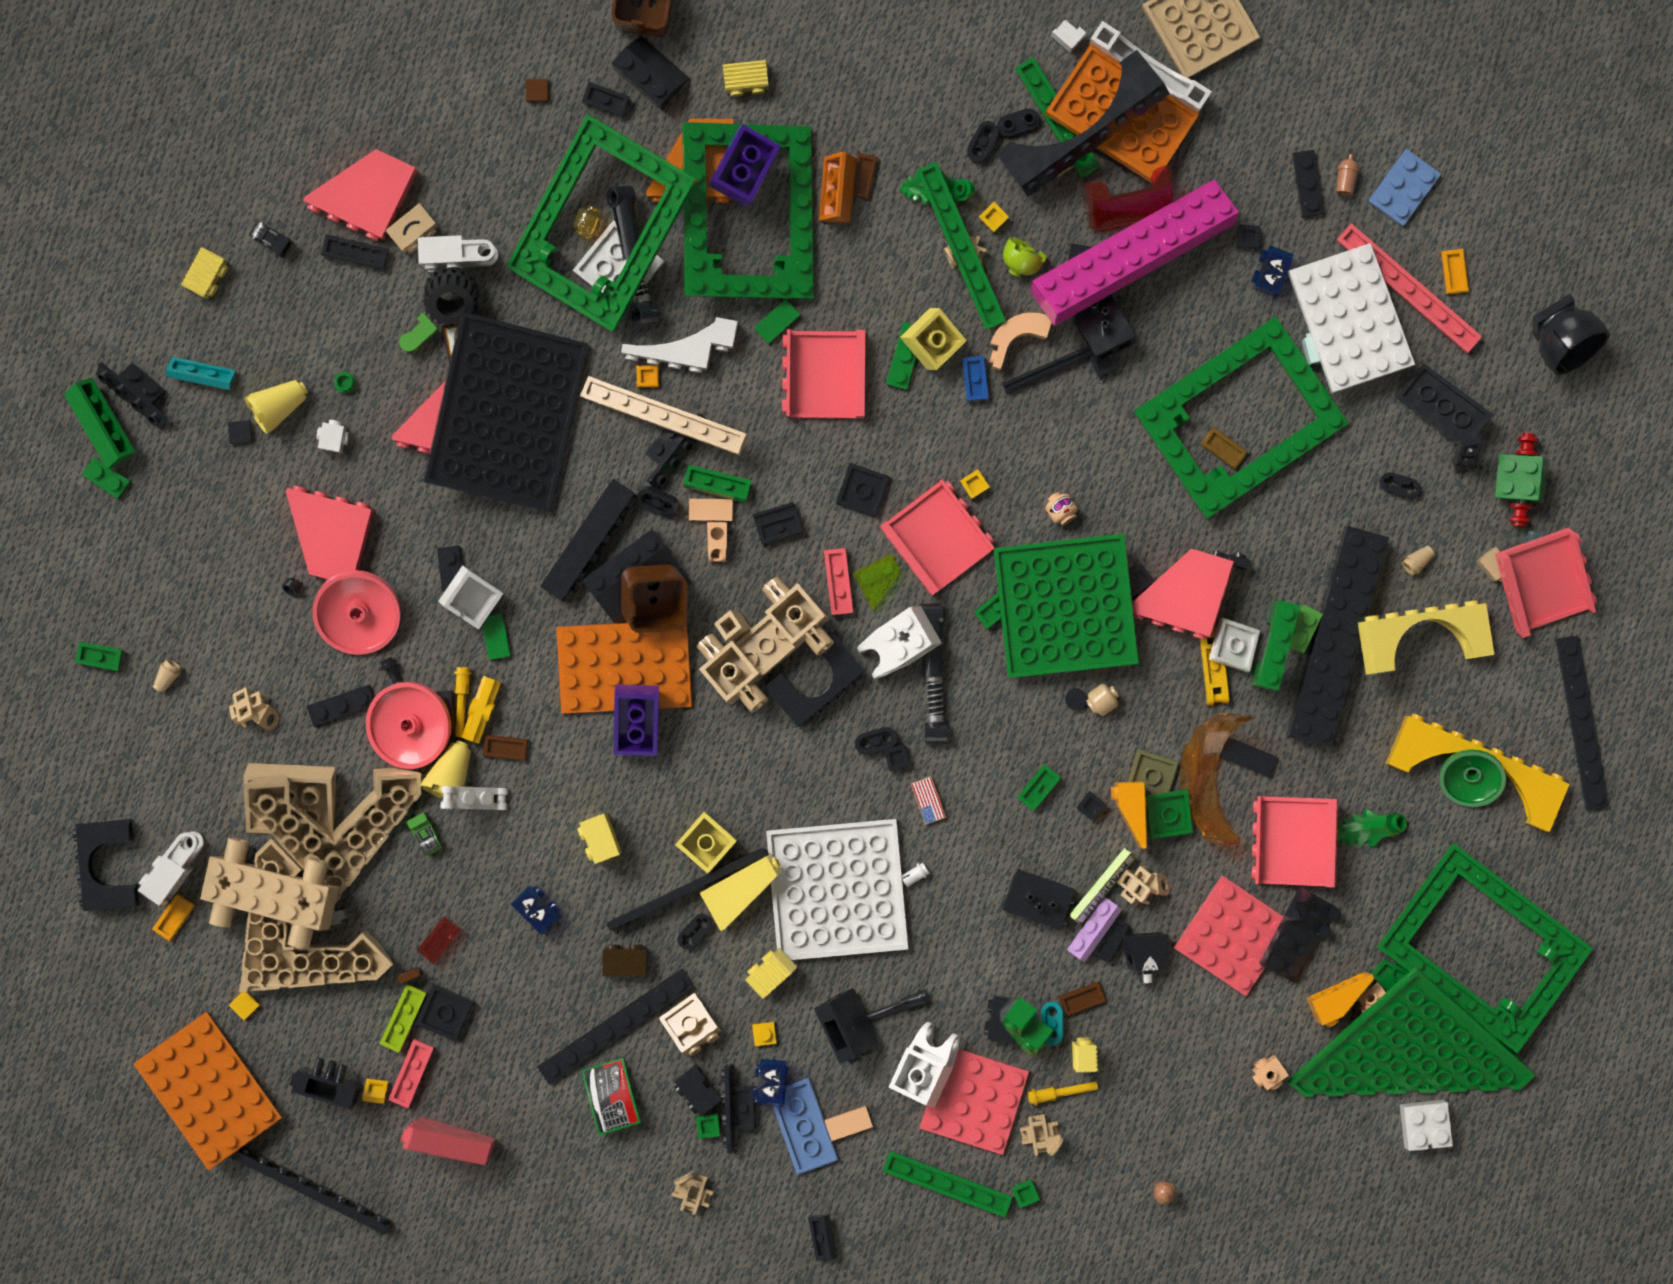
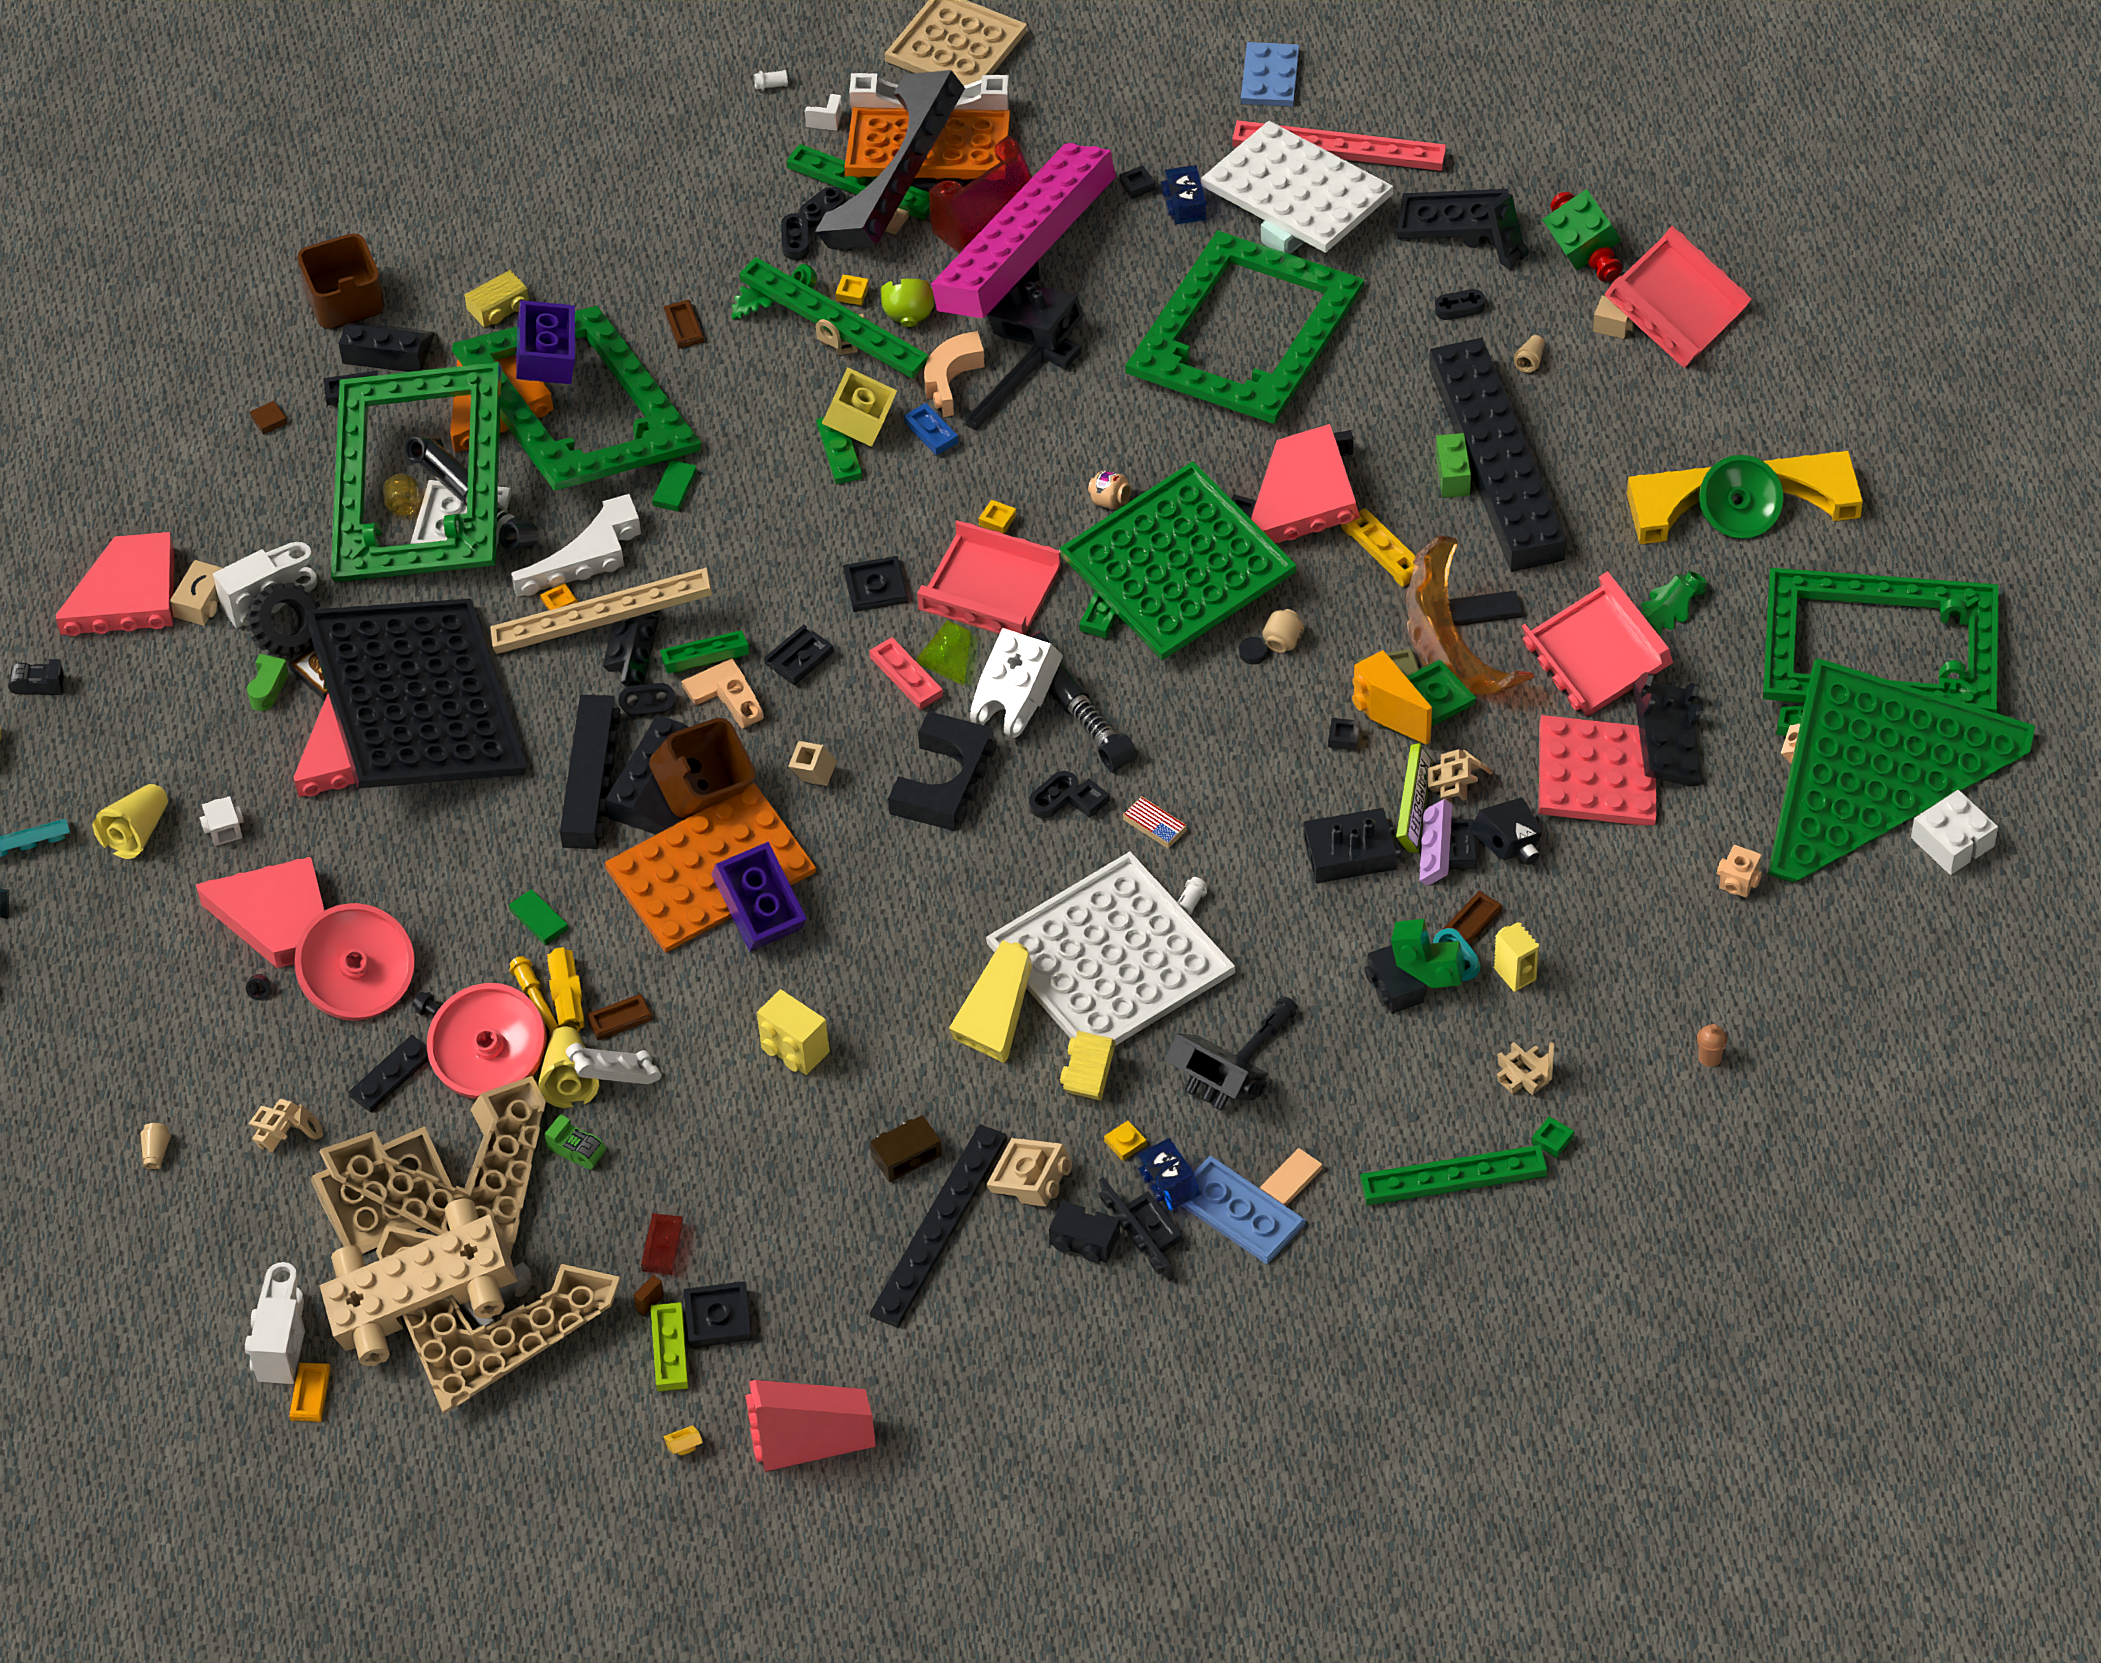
camera: 25 degrees left, 35 degrees down
(94, 893) = (195, 1410): black arch -> none
(99, 656) = (57, 1168): green plate -> none
(207, 1091) = (466, 1543): orange plate -> none
(240, 432) = (105, 873): black tile -> none
(244, 1005) = (457, 1438): yellow tile -> none
(319, 1193) = (634, 1592): black plate -> none
(325, 1085) = (616, 1456): black piece -> none
(344, 382) = (205, 767): green plate -> none
(355, 252) = (145, 646): black plate -> none
(411, 1073) = (716, 1399): coral plate -> none
(449, 564) = (441, 879): black plate -> none
(471, 596) = (483, 879): white piece -> none
(536, 908) = (762, 1150): clear blue brick -> none
(611, 1096) = (985, 1294): slope -> none
(687, 888) = (917, 1055): black tile -> none
(693, 1191) = (1148, 1347): tan piece -> none
(698, 935) = (963, 1079): black beam -> none
(706, 842) = (922, 978): light yellow brick -> none
(708, 1126) = (1123, 1265): green plate -> none
(765, 644) = (875, 724): tan piece -> none
(822, 1237) = (1344, 1305): black plate -> none
(824, 374) = (762, 503): coral panel -> none
(837, 188) = (661, 340): orange slope -> none
(928, 1061) = (1340, 1066): white brick -> none
(977, 1102) = (1422, 1079): coral plate -> none
(1038, 787) = (1271, 746): green plate -> none
(1051, 1094) = (1508, 1024): yellow pin -> none
(1223, 448) = (1243, 362): pearl gold tile -> none
(1234, 645) = (1391, 514): white tile -> none
(1282, 622) = (1428, 464): green arch -> none
(1307, 183) = (1167, 116): black plate -> none
(1336, 1000) = (1752, 763): light orange slope -> none
(1347, 176) = (1202, 87): nougat piece -> none
(1454, 271) = (1376, 113): light orange tile -> none
(1467, 623) = (1622, 374): light yellow arch -> none
(1568, 335) = (1533, 92): black plate -> none
(1581, 722) = (1819, 406): black plate -> none

